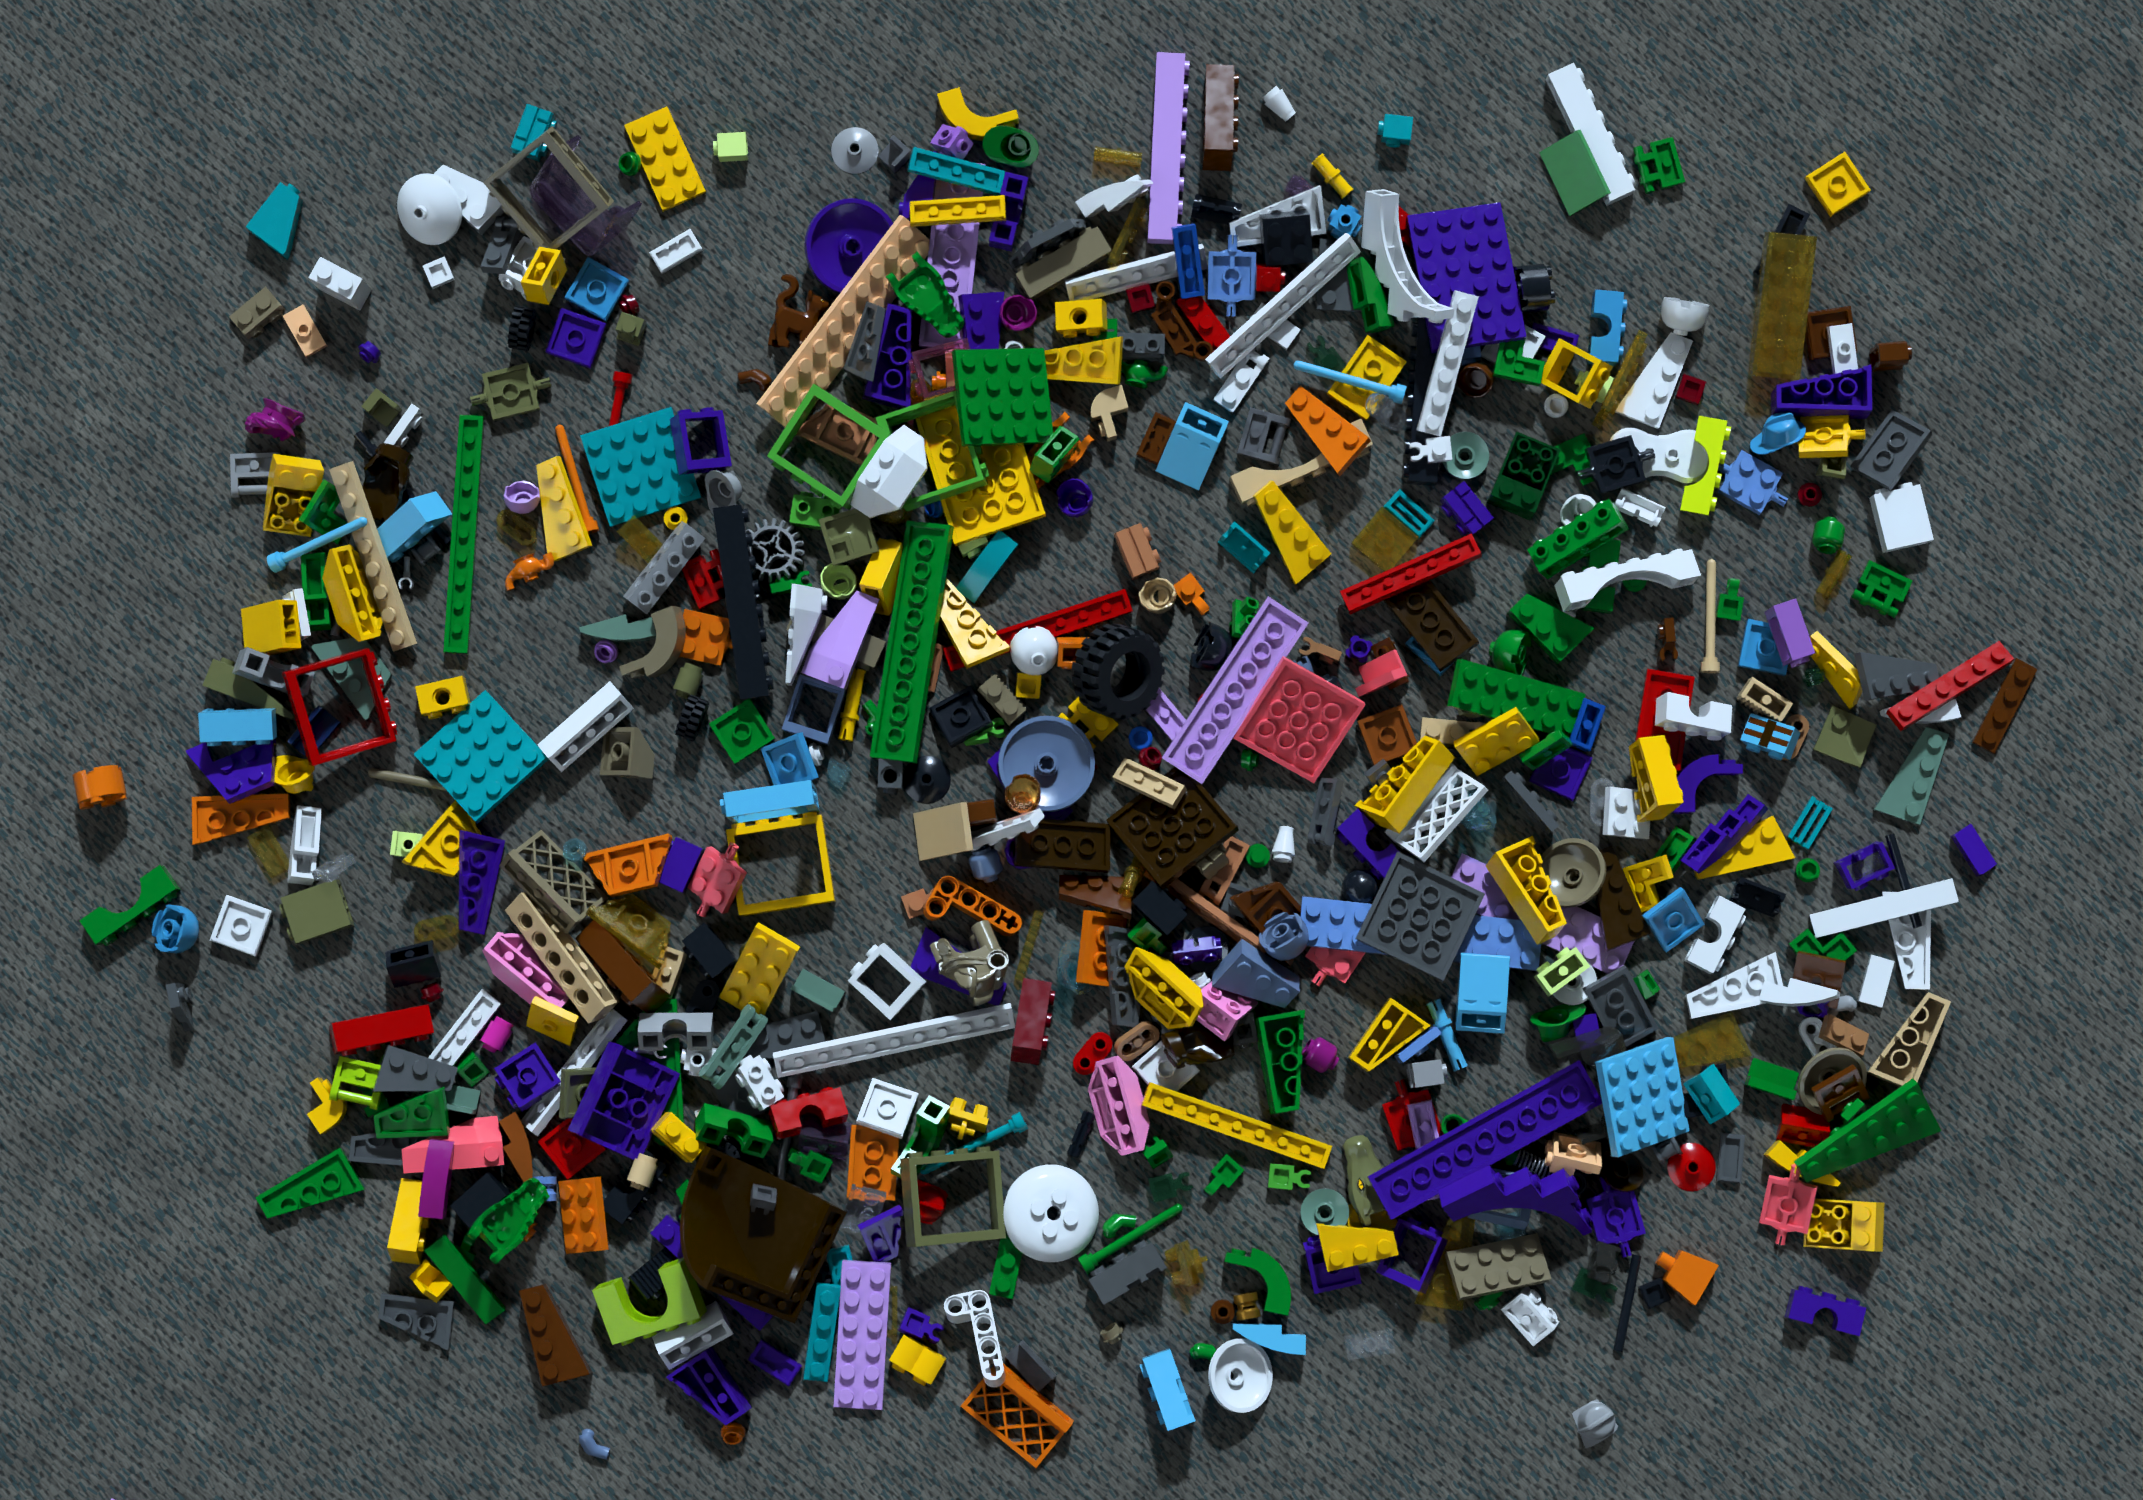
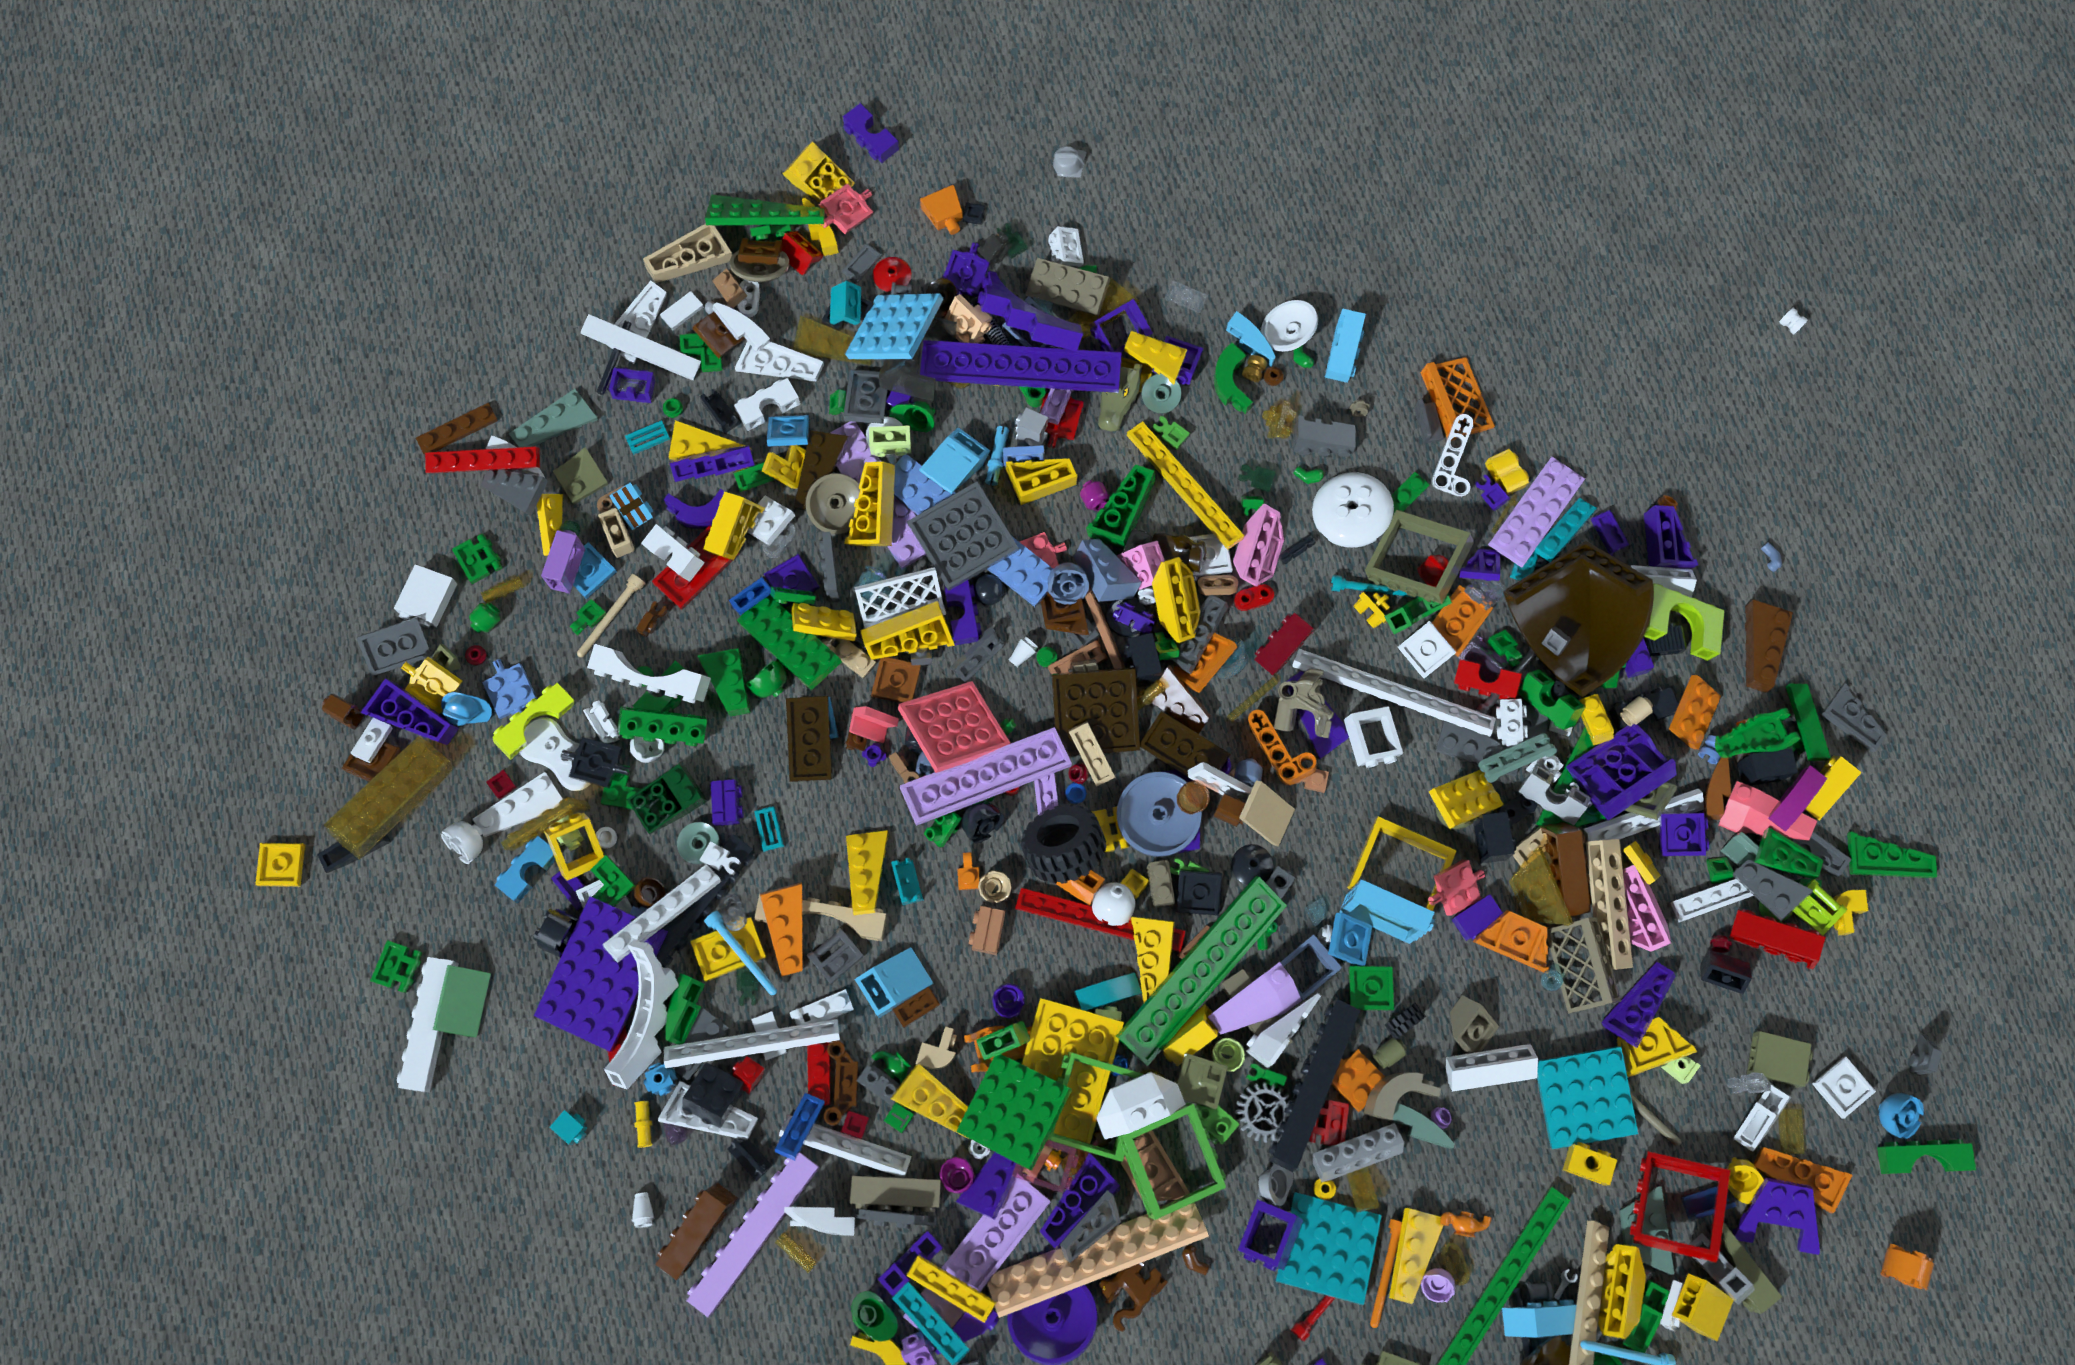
camera: 145 degrees left, 10 degrees down
(237, 726) = (1773, 1243): medium azure wedge -> none
(430, 1281) = (1836, 735): yellow panel -> none
(436, 922) = (1688, 993): clear yellow beam -> none
(496, 1035) = (1688, 881): dark pink brick -> none
(569, 1150) = (1685, 765): red plate -> none
(818, 990) = (1428, 762): sand green panel -> none
(849, 715) = (1281, 948): yellow pin -> none
(927, 296) = (1020, 1237): green animal -> none
(1068, 311) = (920, 1148): yellow brick -> none
(1091, 1261) = (1344, 462): green piece -> none
(1127, 233) = (830, 1183): clear yellow plate -> none
(1225, 1173) = (1212, 460): green plate -> none
(1231, 275) = (774, 1095): medium blue plate -> none
(1384, 540) = (800, 820): clear yellow plate -> none
(1411, 574) = (799, 780): red plate -> none
(1627, 1303) = (996, 218): black bar -> none
(1772, 1079) = (798, 292): green panel -> none
(1973, 850) = (552, 350): dark purple slope -> none

